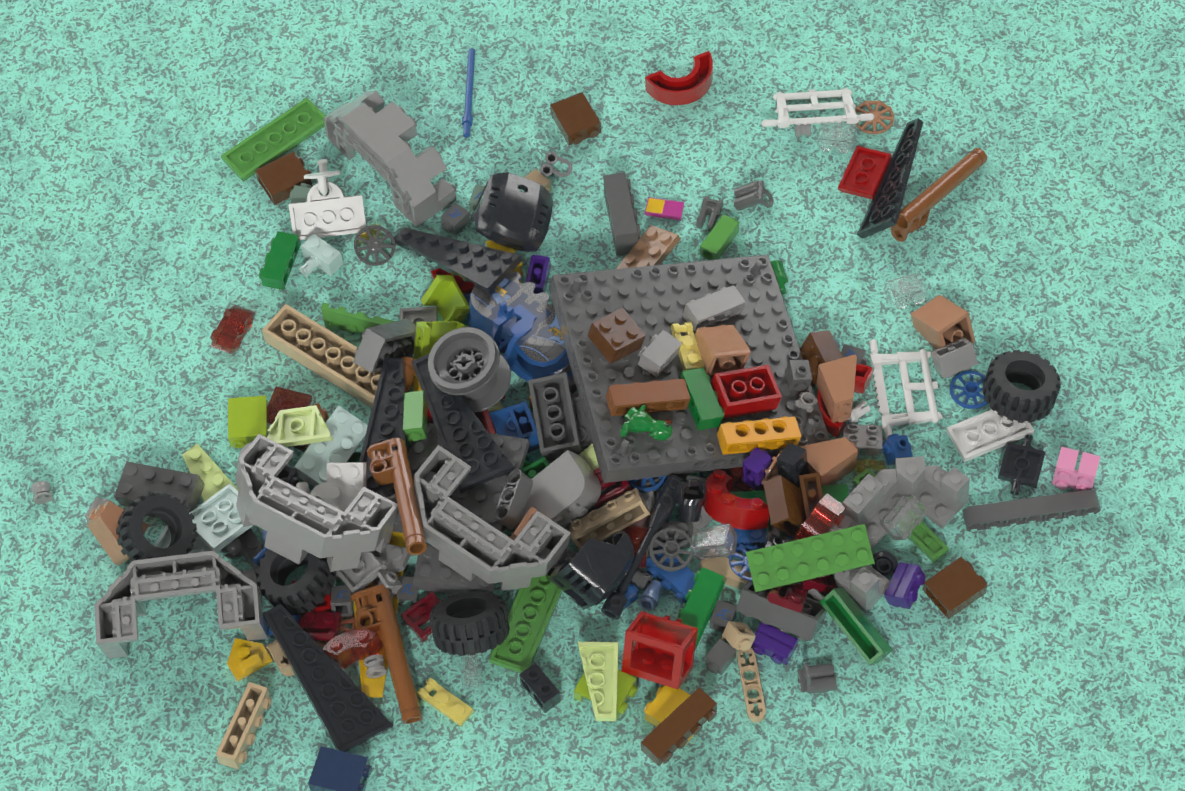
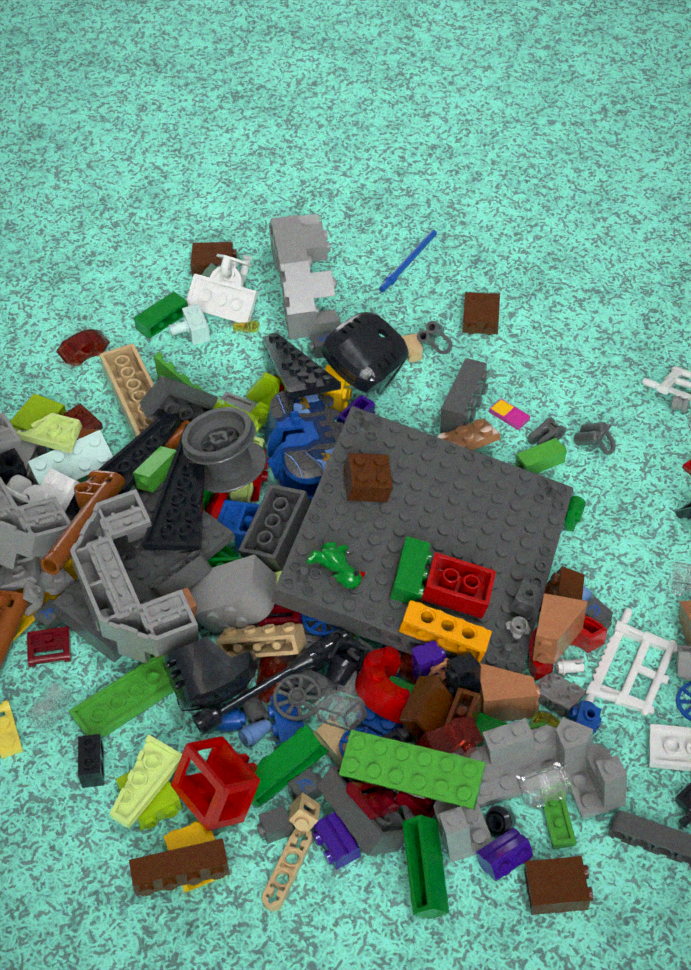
camera: 30 degrees right, 10 degrees down
(274, 139) = (232, 229): bright green plate -> none
(374, 245) = (243, 335): dark grey wheel -> none
(469, 623) = (67, 666): black tyre -> none
(656, 395) = (363, 544): dark orange brick -> none
(659, 353) = (399, 513): light grey brick -> none
(683, 89) = (595, 328): red brick -> none
(689, 351) = (433, 521): light yellow plate -> none
(714, 307) = (482, 502): light grey brick -> none
(721, 349) = (461, 536): nougat slope -> none
(817, 678) = (355, 899): dark grey piece -> none

